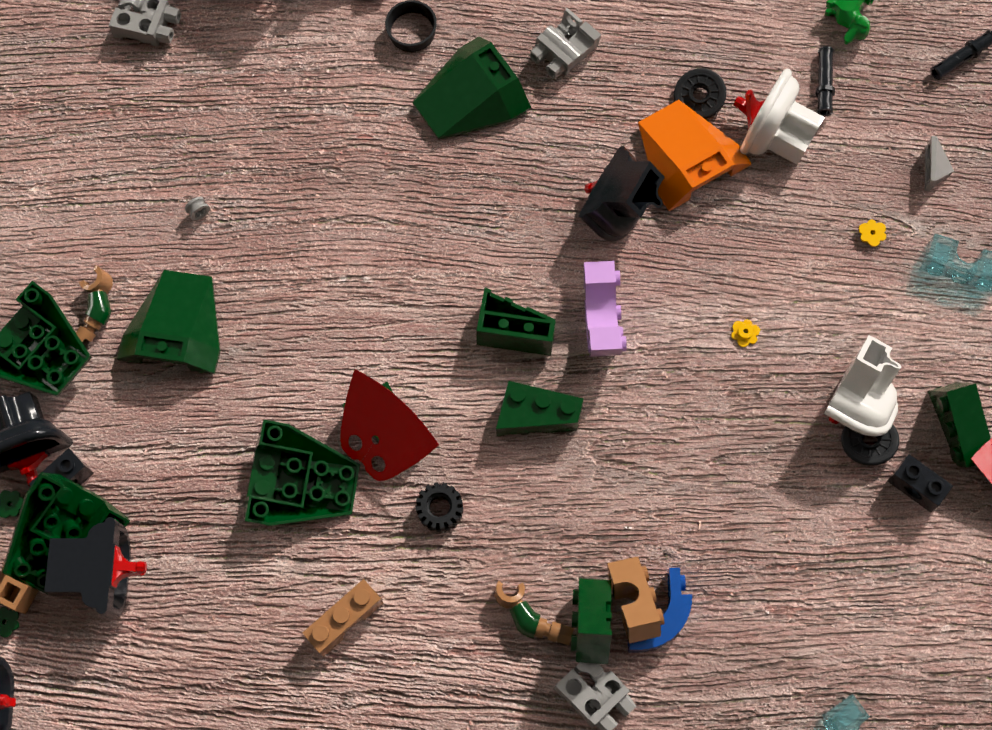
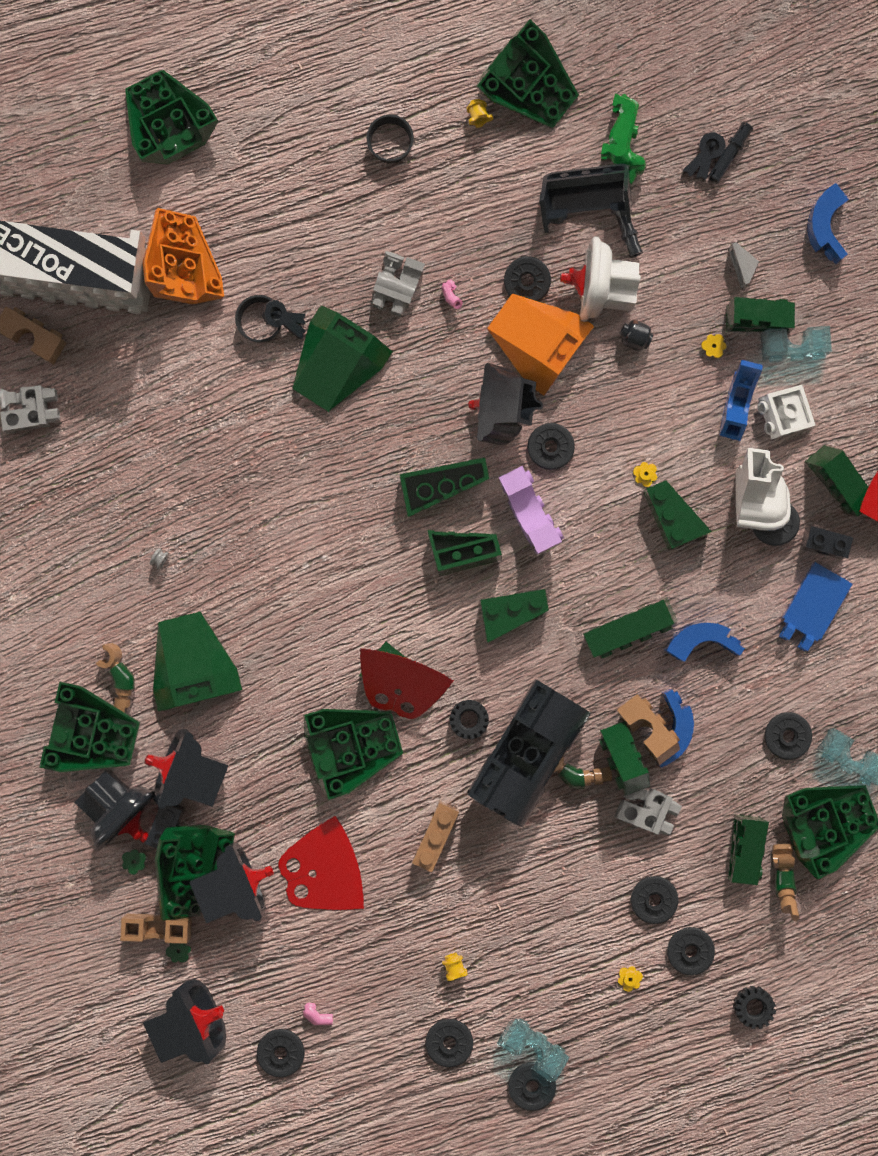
camera: 30 degrees left, 15 degrees up
(110, 427) = (186, 773): none -> black piece
(221, 598) = (336, 867): none -> red piece
(429, 23) = (276, 315): none -> black piece
(516, 544) = (528, 753): none -> black cylinder
(519, 248) = (435, 484): none -> dark green wedge
(614, 71) = (450, 298): none -> bright pink arm
(659, 249) = (555, 433): none -> black wheel
(661, 481) = (630, 627): none -> dark green wedge
(737, 522) = (687, 638): none -> blue arch
(758, 385) = (673, 515): none -> dark green wedge
(792, 188) = (636, 335): none -> black head
(793, 32) = (585, 191): none -> black windscreen
(805, 670) = (774, 736): none -> black wheel
(880, 292) = (738, 400): none -> blue arch
(881, 547) = (814, 605): none -> blue tile
(926, 327) = (785, 412): none -> white plate
(930, 214) = (759, 315): none -> dark green wedge
(944, 43) = (711, 147): none -> black piece

